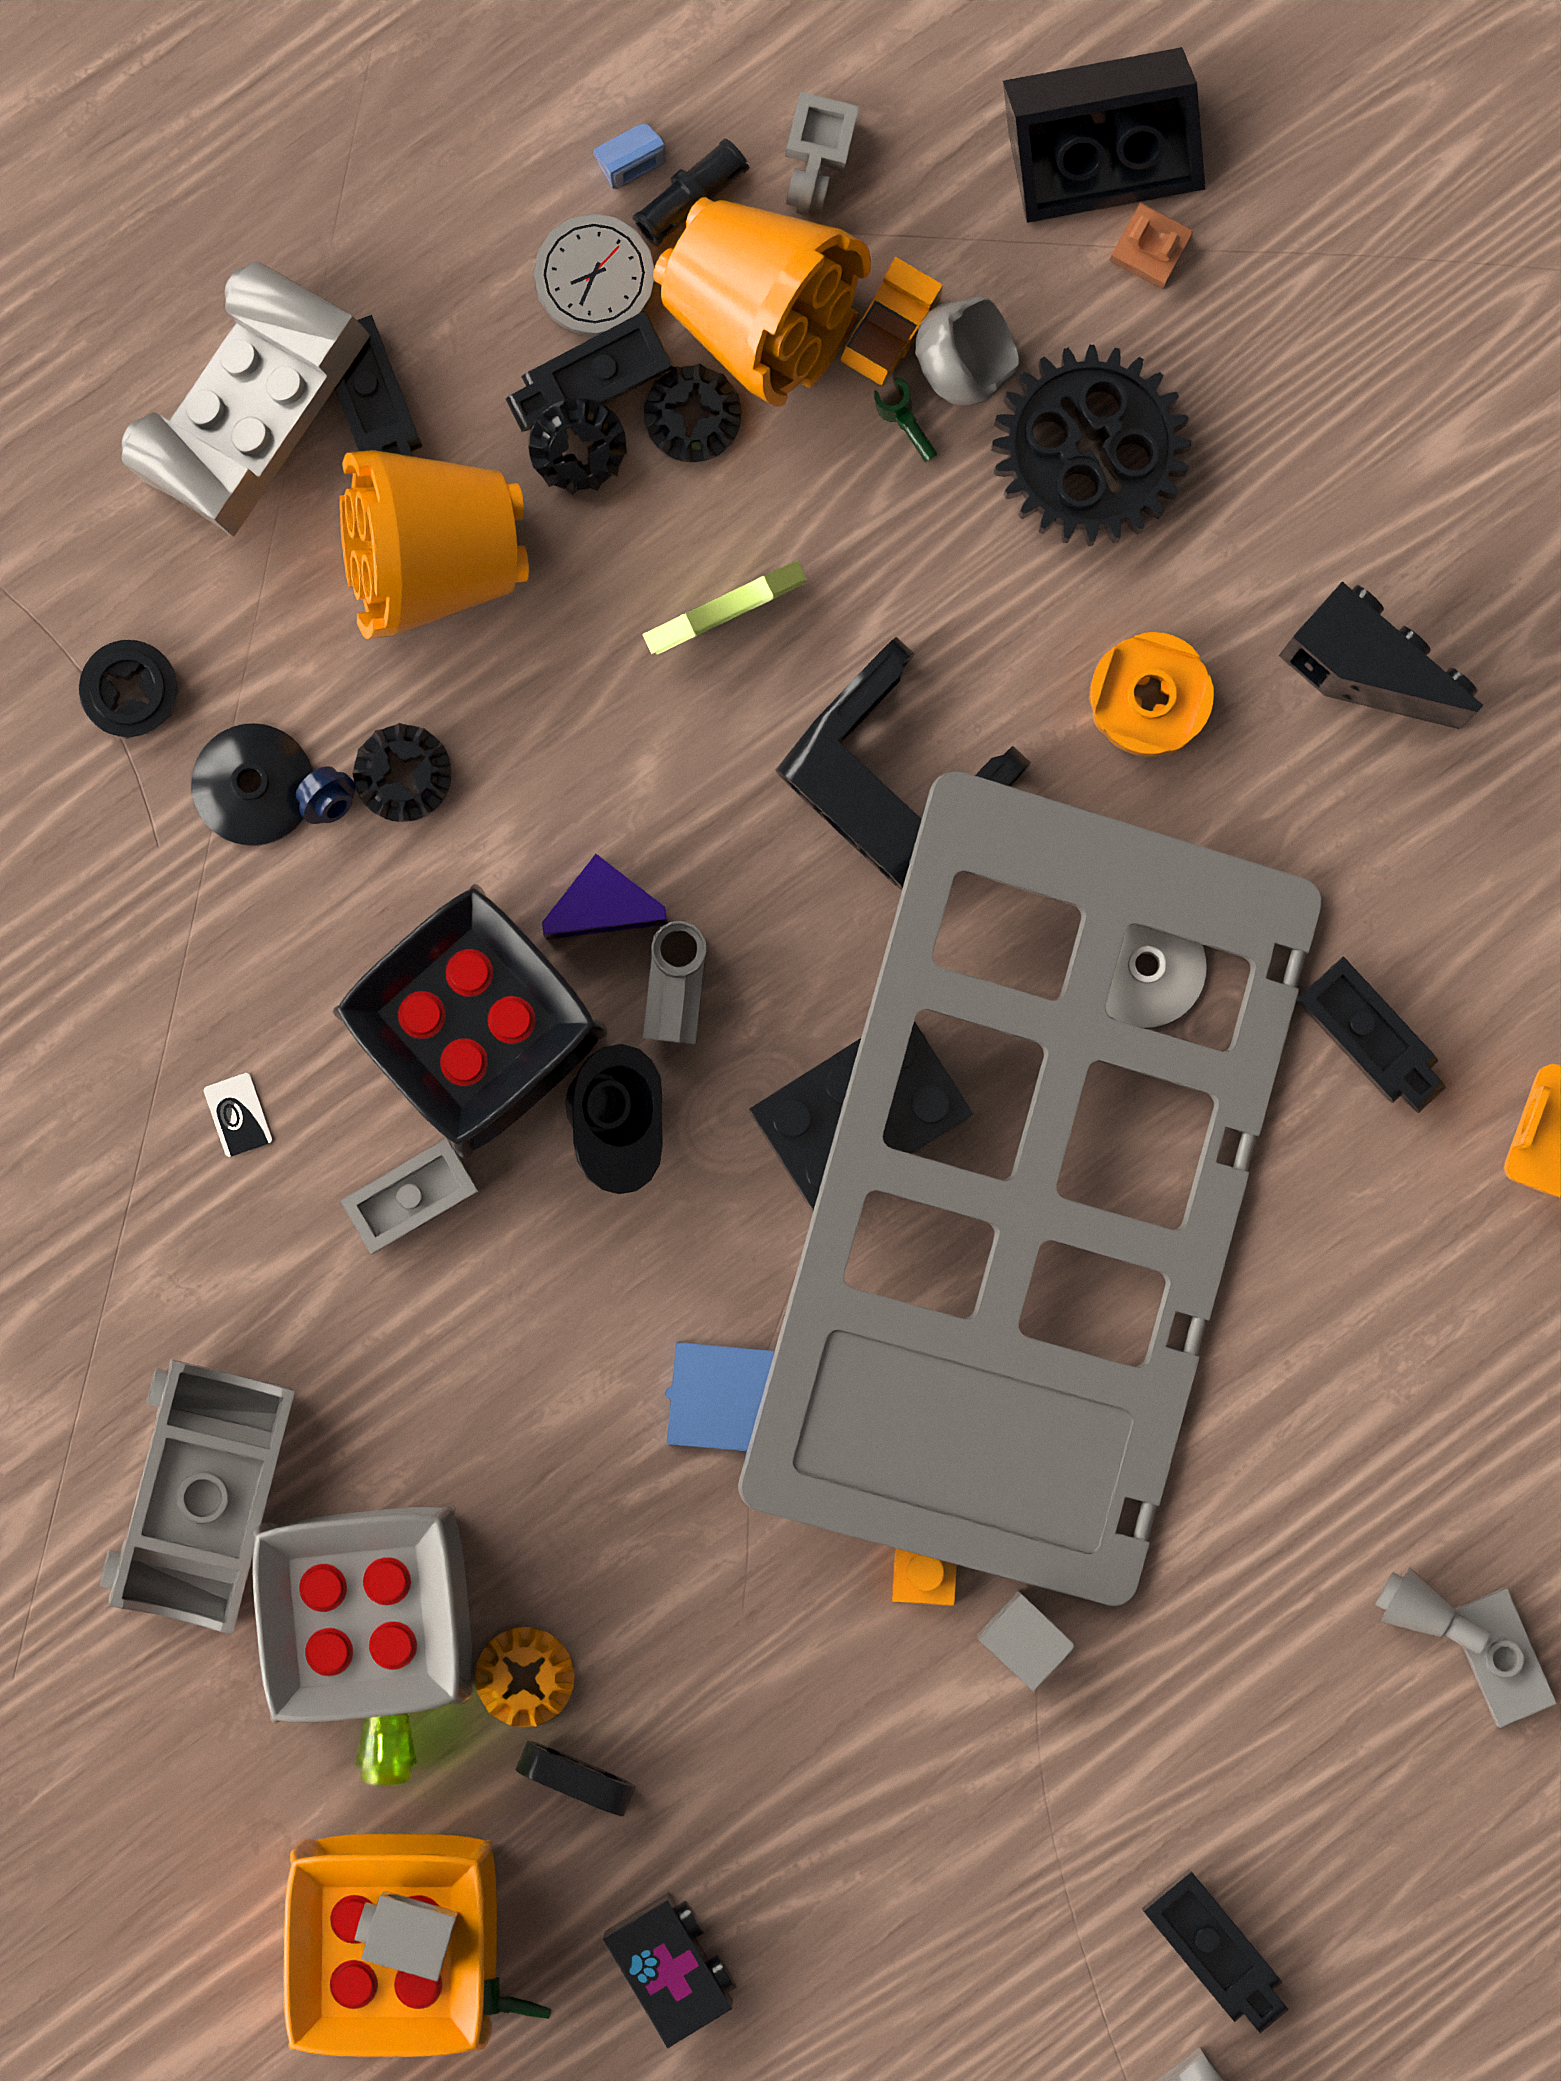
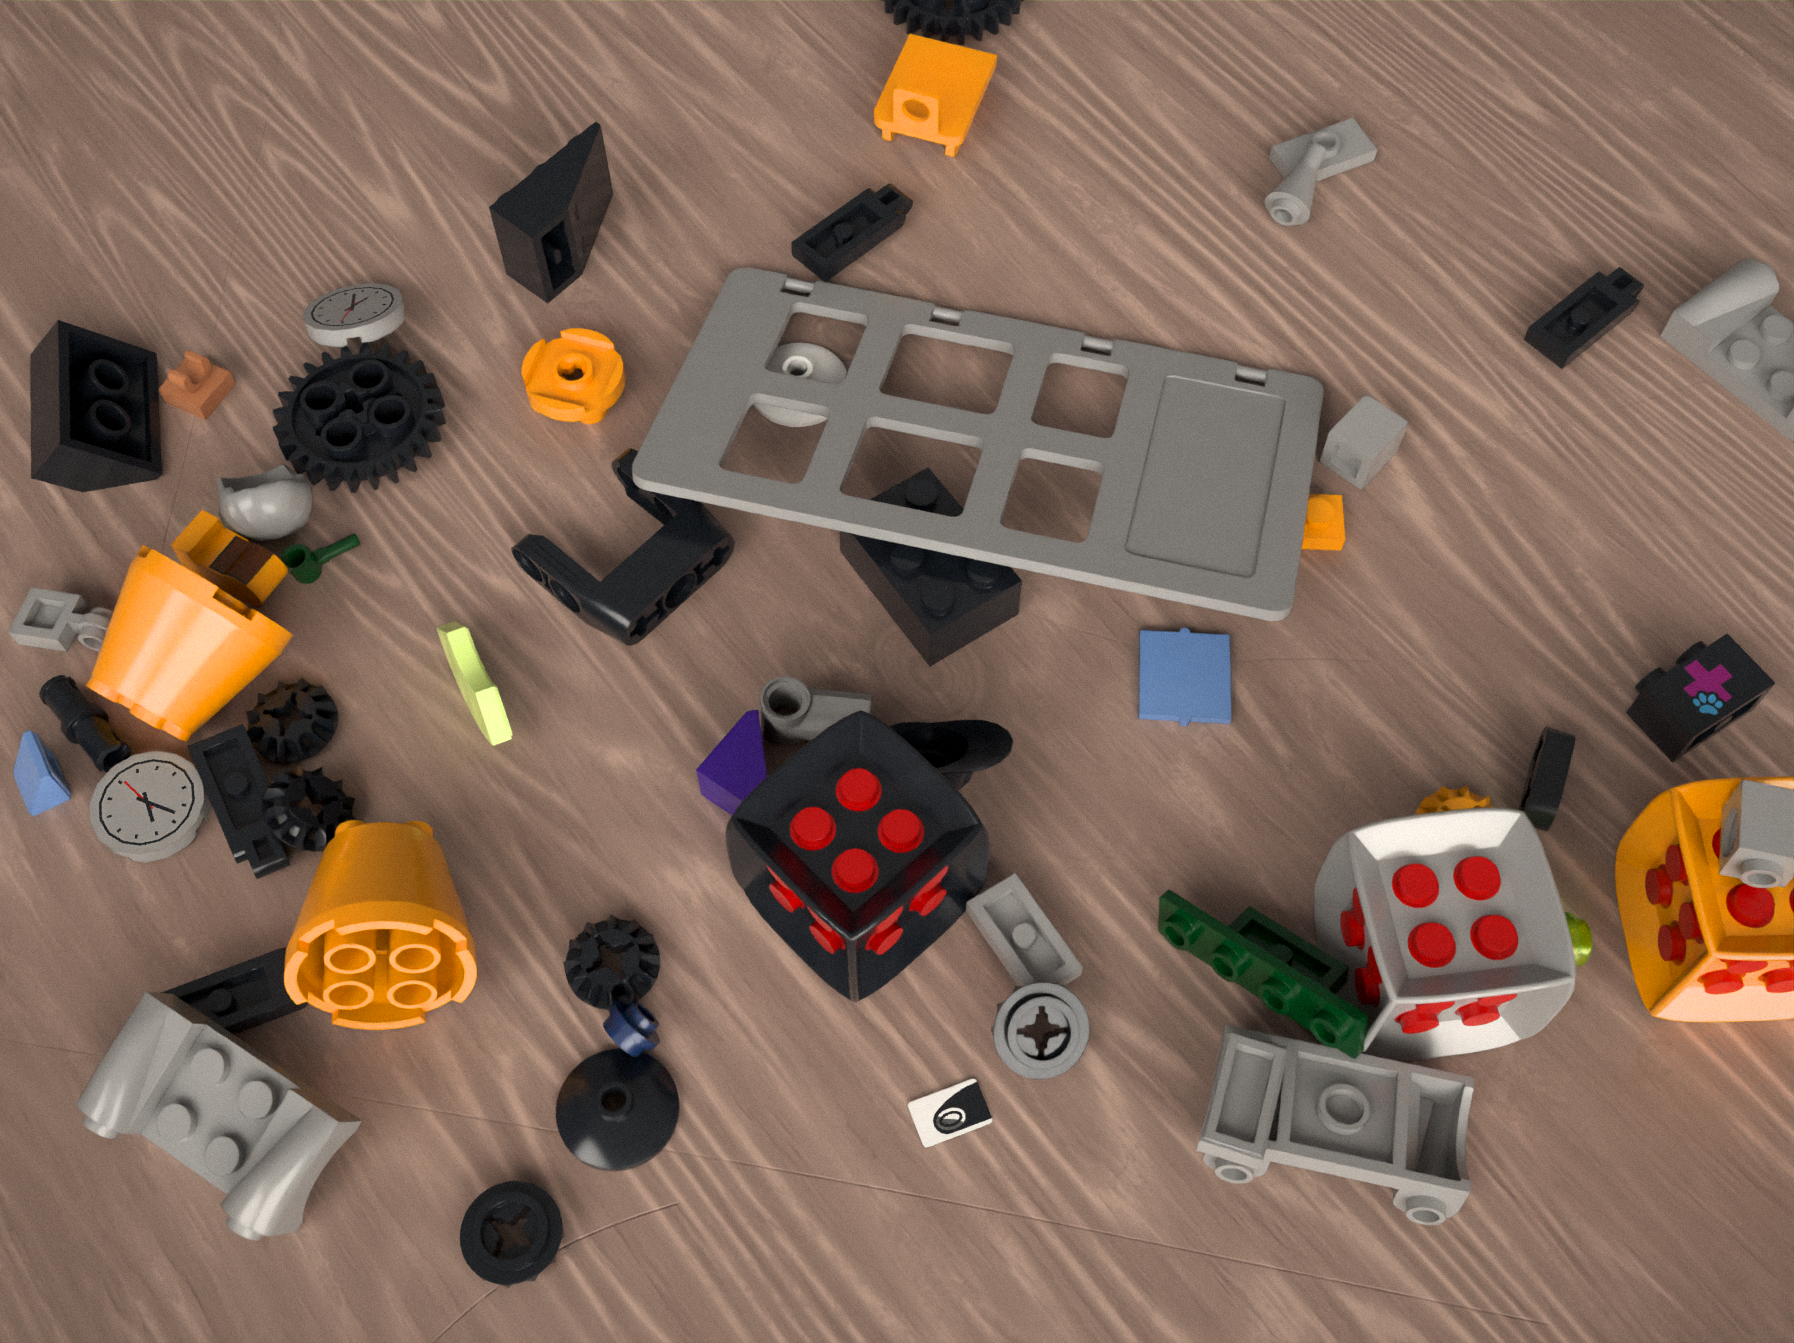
camera: 90 degrees left, 25 degrees down
(207, 1395) = (1242, 1100): none -> light grey tile
(297, 1229) = (1059, 1047): none -> gear
(366, 1451) = (1271, 964): none -> dark green bracket
(1242, 424) = (353, 312): none -> light grey tile

